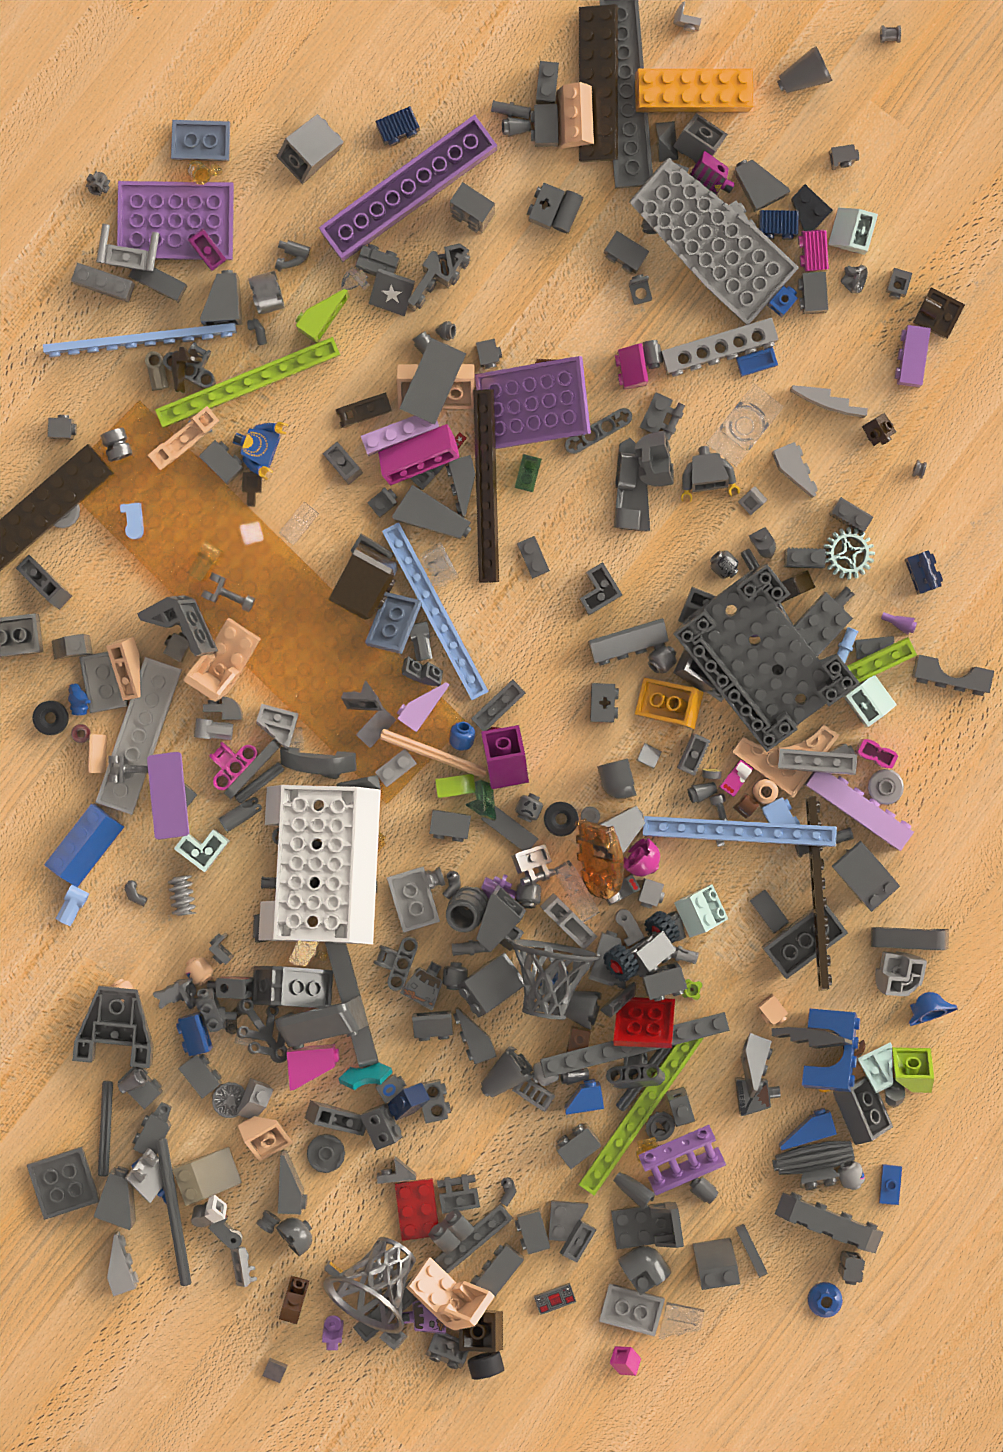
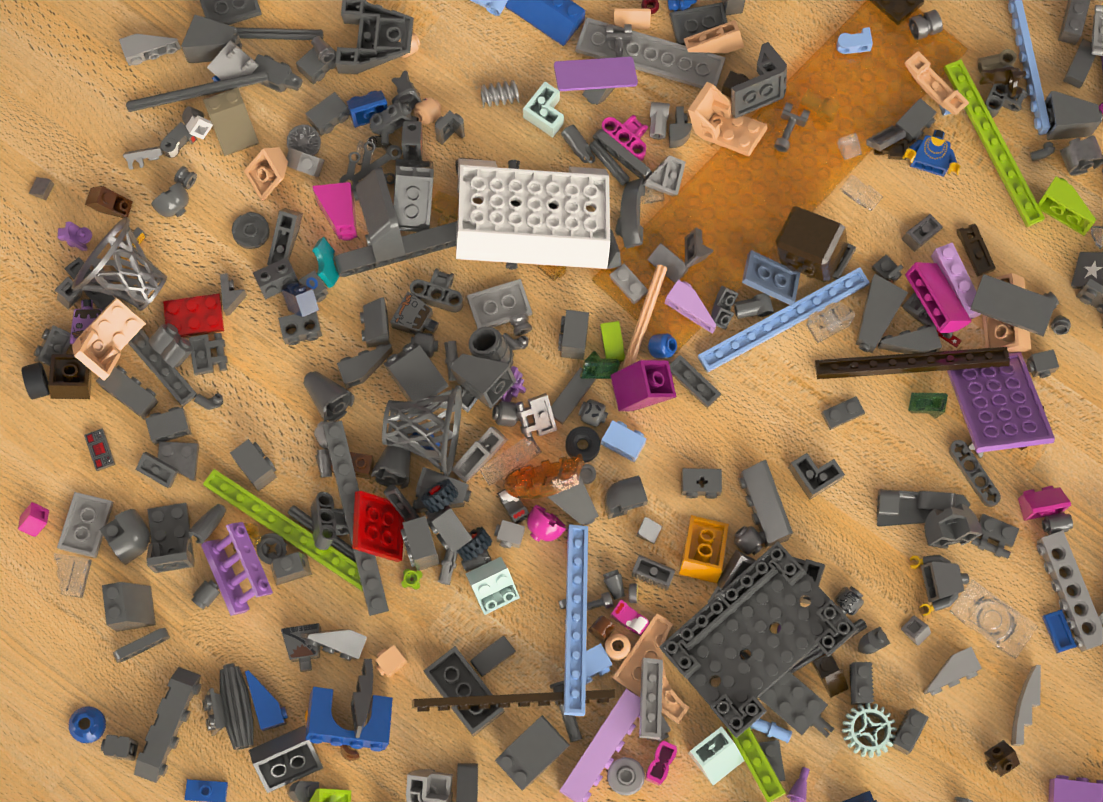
camera: 90 degrees right, 15 degrees down
(131, 892) = (498, 53): dark grey arm -> none
(242, 494) = (886, 138): none -> flat silver tile
(291, 1191) = (220, 193): dark grey slope -> none
(550, 1096) = (302, 419): light grey slope -> none
(559, 777) = (623, 440): none -> light blue brick
(585, 1098) = (302, 473): blue slope -> none
(626, 920) = (475, 514): flat silver leg -> none
(851, 1175) = (217, 747): light grey head -> none
(878, 1067) = (330, 774): light aqua wing -> none

